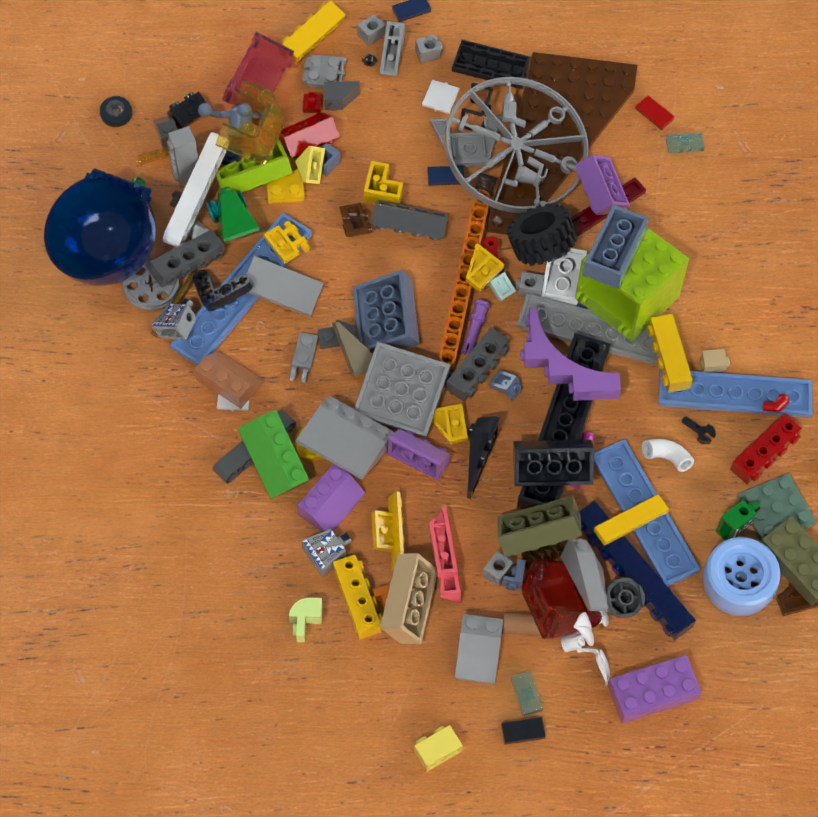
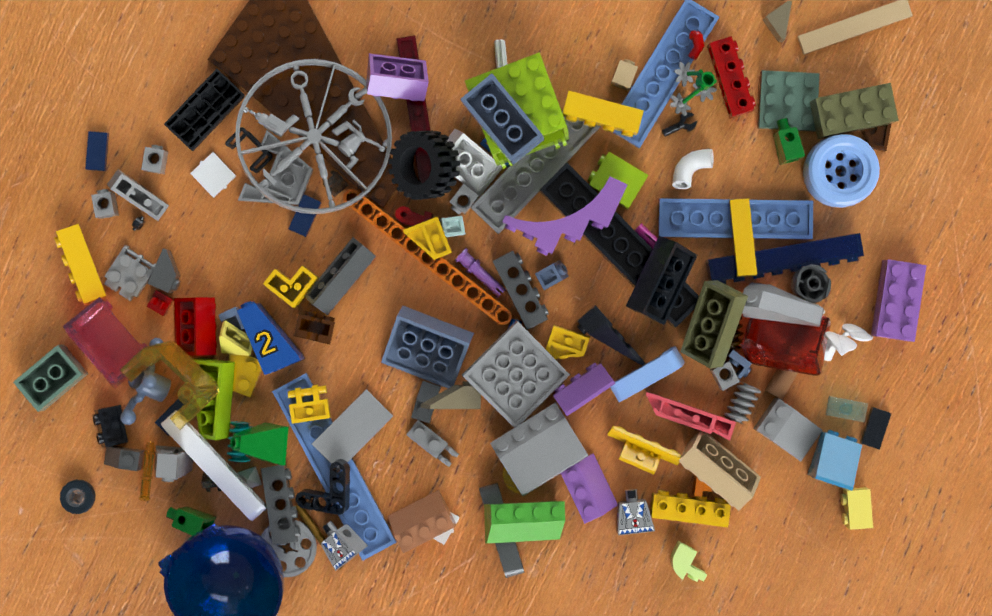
camera: 65 degrees left, 25 degrees up
(207, 49) = (50, 378): none -> sand green brick
(324, 188) = (268, 339): none -> blue slope
(464, 499) = (648, 374): none -> light blue beam
(473, 702) = (836, 460): none -> dark azure slope
(481, 595) = (742, 403): none -> light grey piece
(626, 408) = (621, 170): none -> lime brick
(747, 413) = (703, 87): none -> light grey plant

